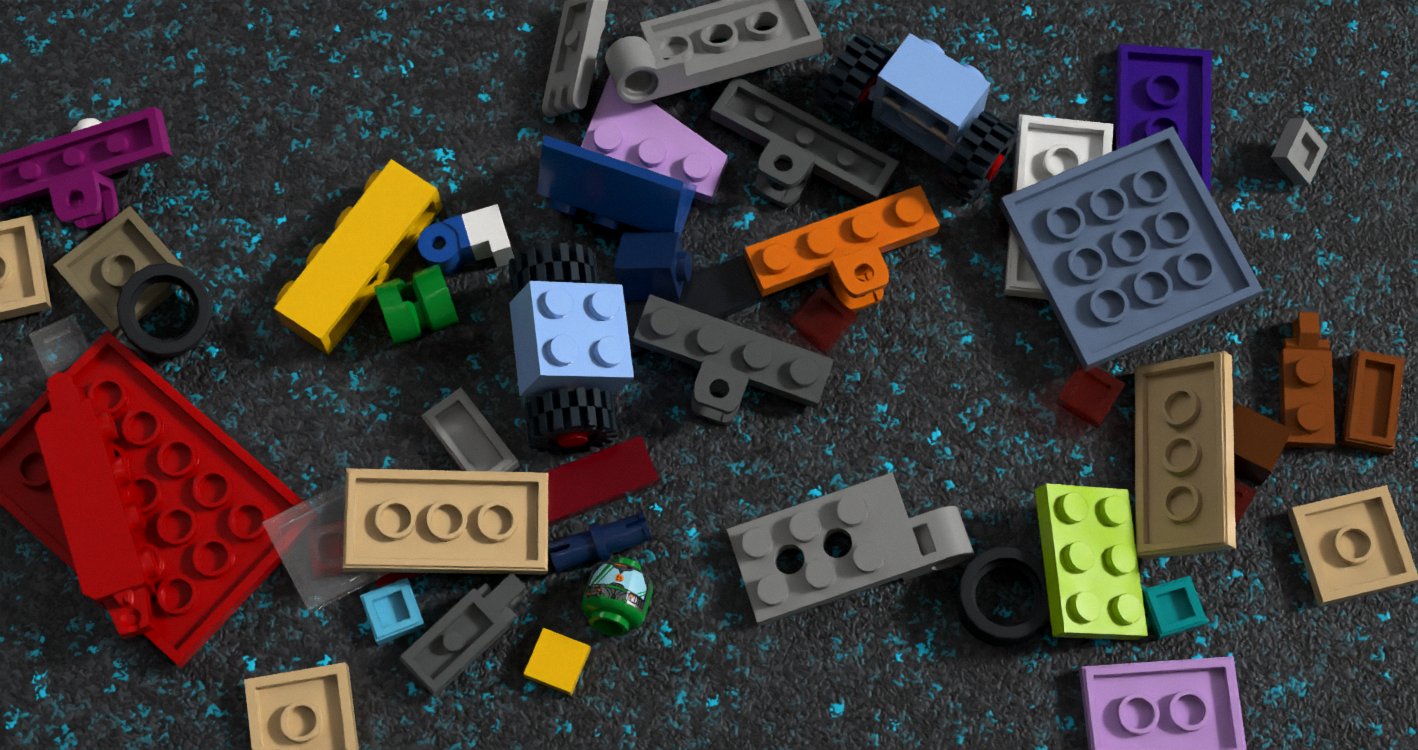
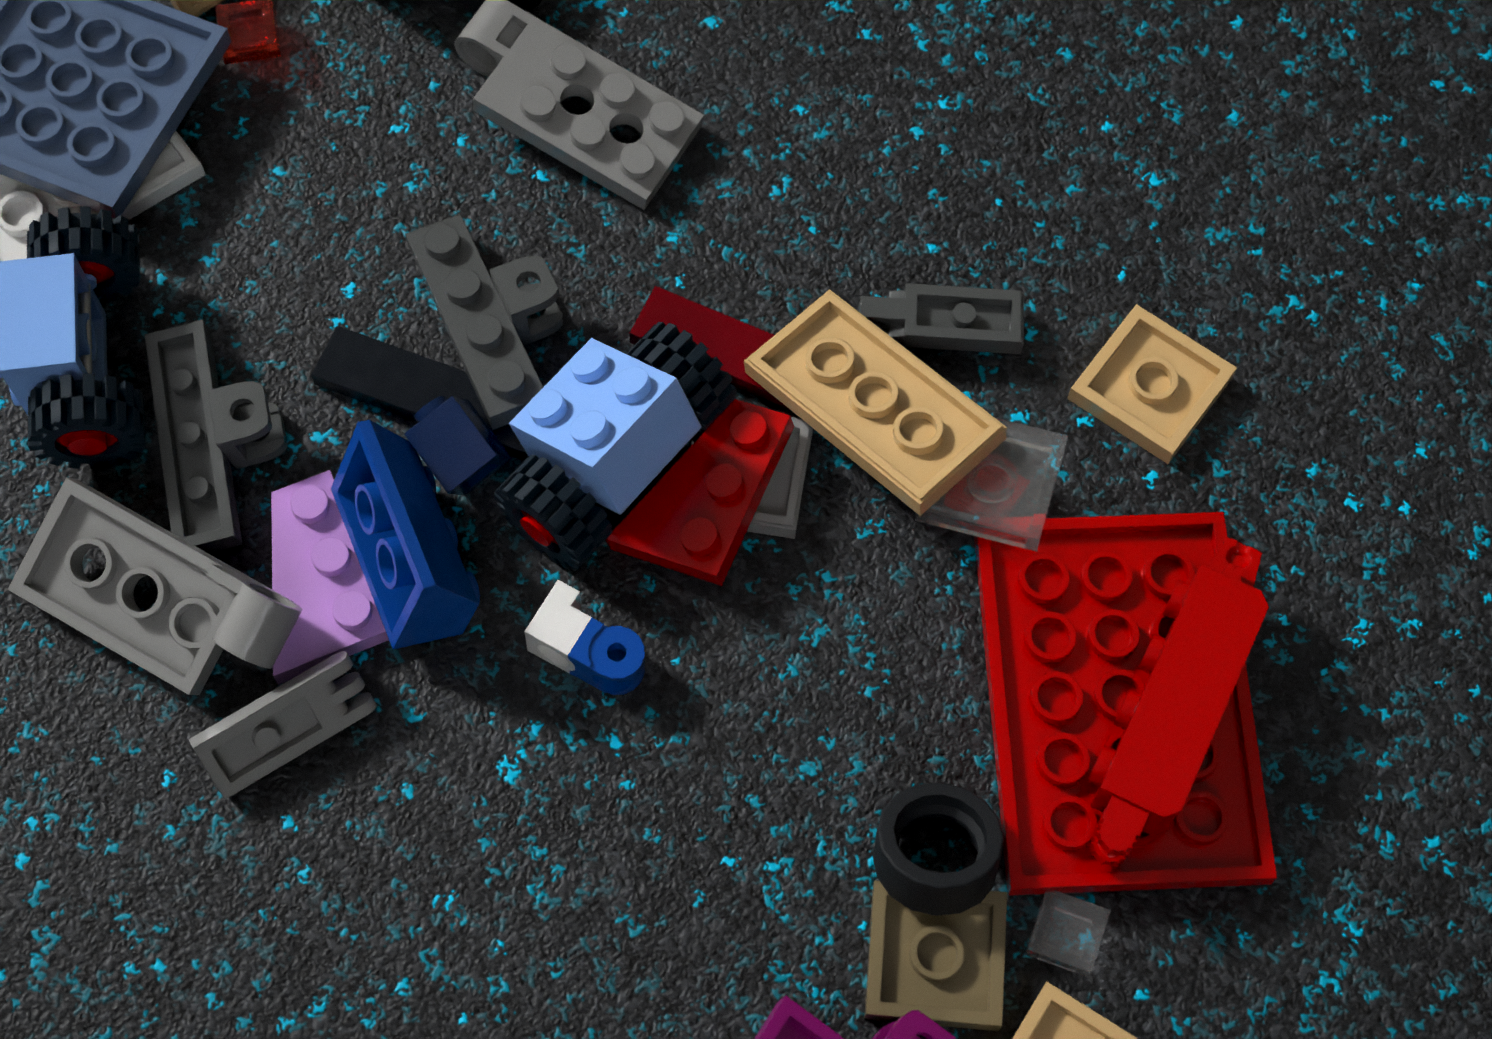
camera: 135 degrees left, 5 degrees down
(358, 256) = (699, 727): yellow brick -> none
(392, 611) = (993, 390): medium azure tile -> none
(416, 304) = (676, 611): green wheel -> none
(483, 383) = (708, 496): none -> red wing
(557, 661) = (891, 237): yellow tile -> none
(599, 542) = (755, 282): dark blue pin -> none
(617, 597) = (793, 227): head -> none
(823, 320) = (369, 287): clear red tile -> none
(845, 248) = (283, 310): orange plate -> none

